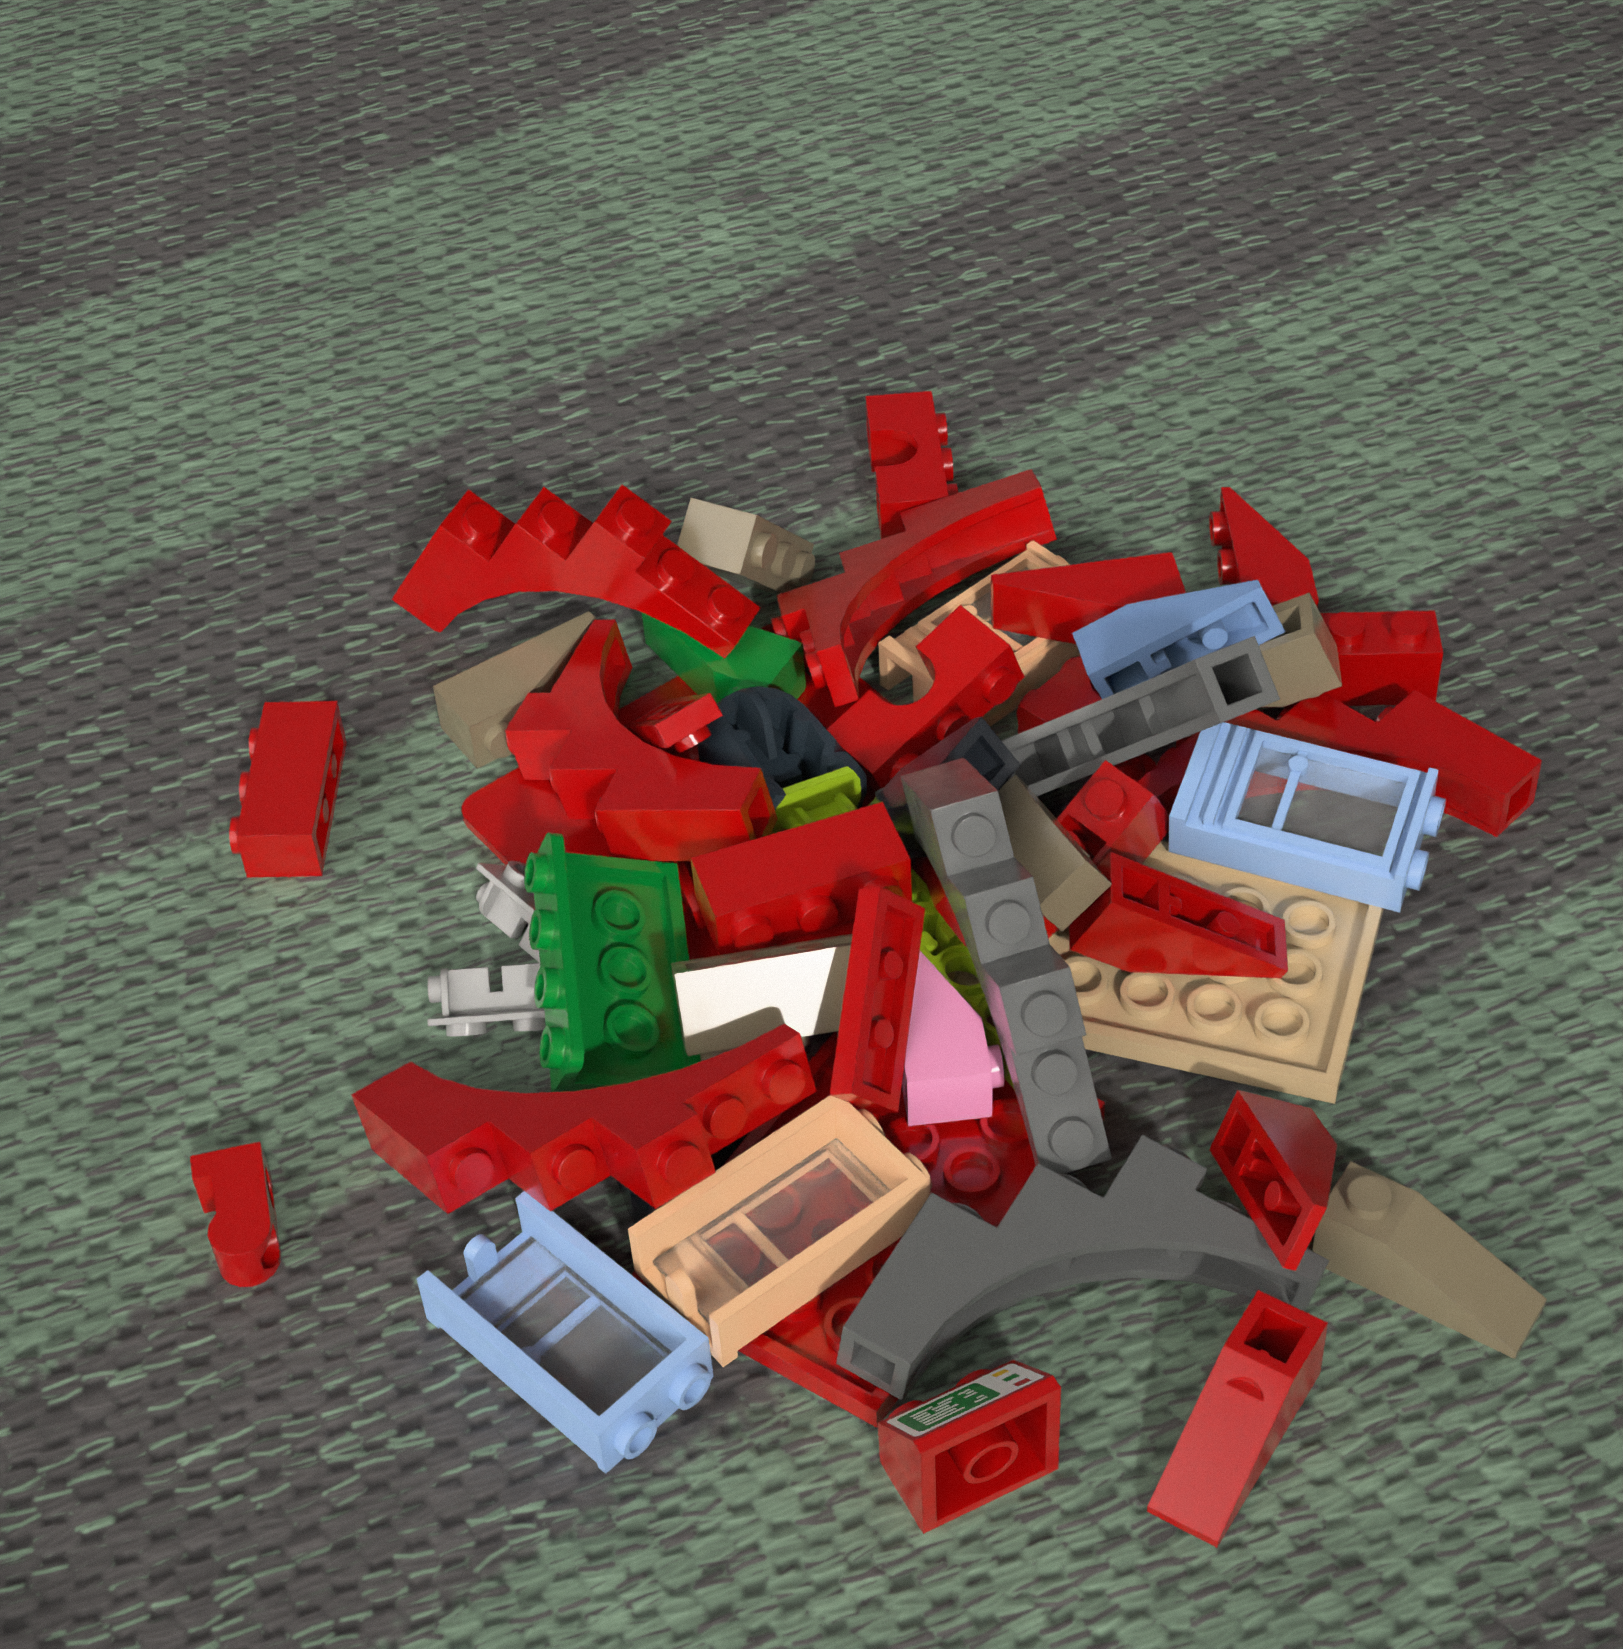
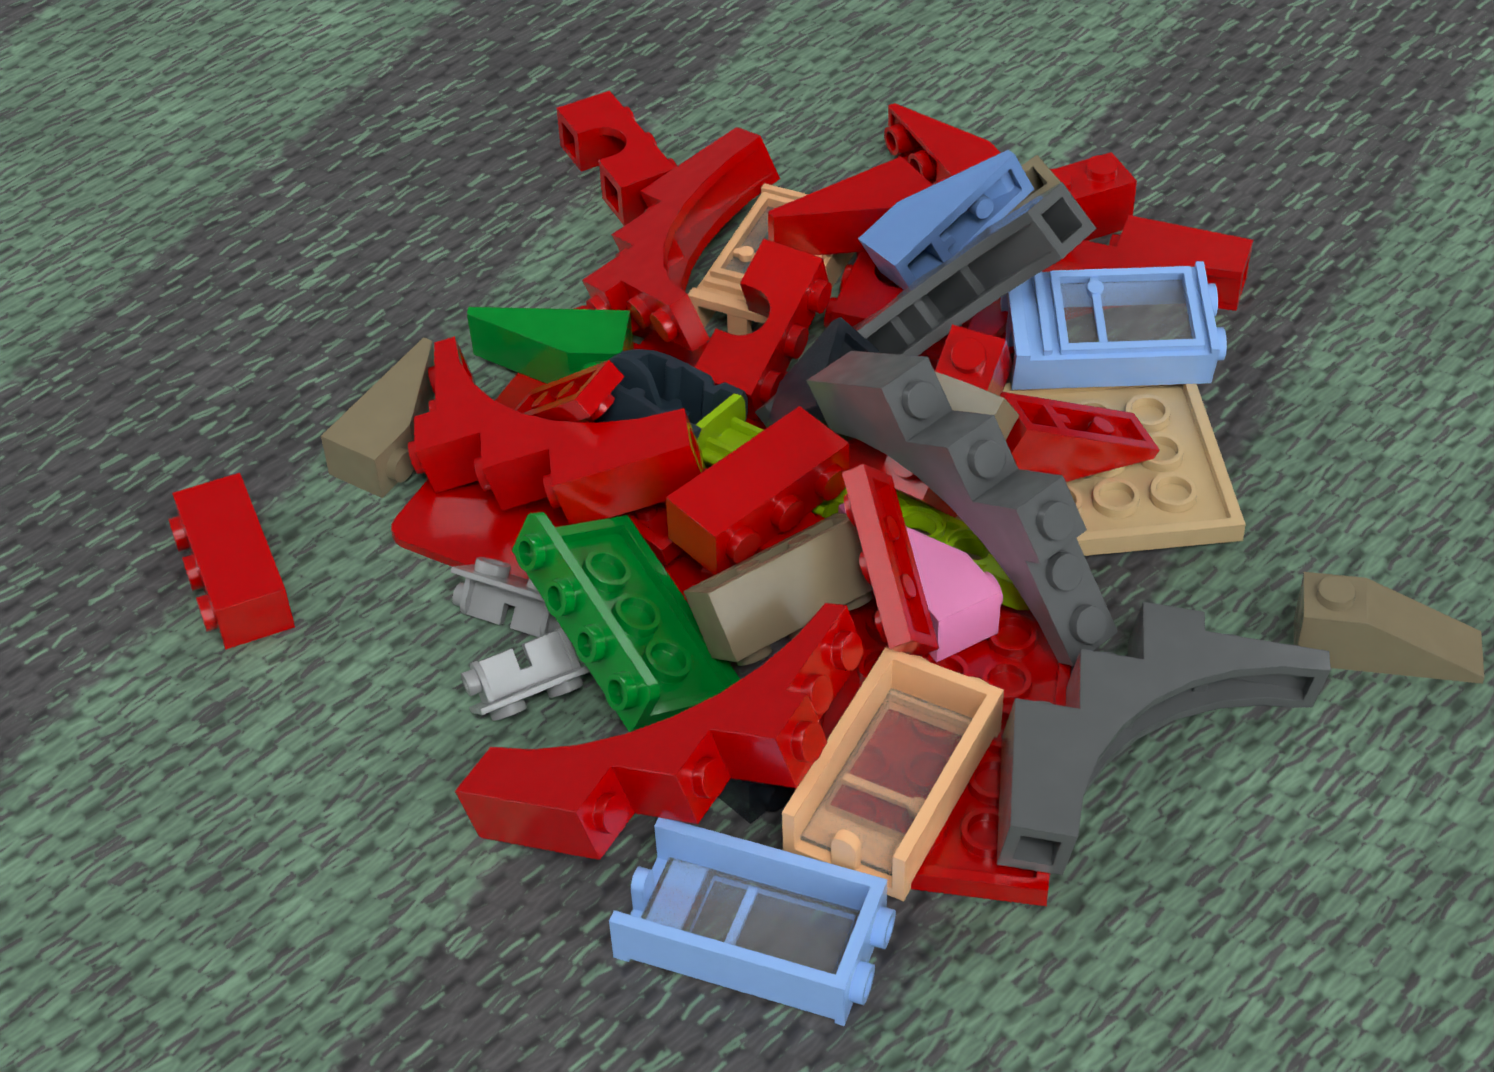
camera: 25 degrees left, 0 degrees up
(245, 1222) = (405, 923): red leg -> none
(558, 549) = (385, 286): red arch -> none
(746, 548) = (540, 248): dark tan brick -> none
(972, 1441) = (1139, 882): red slope -> none
(1240, 1417) = (1329, 792): slope -> none
(1278, 1167) = (1259, 598): red slope -> none

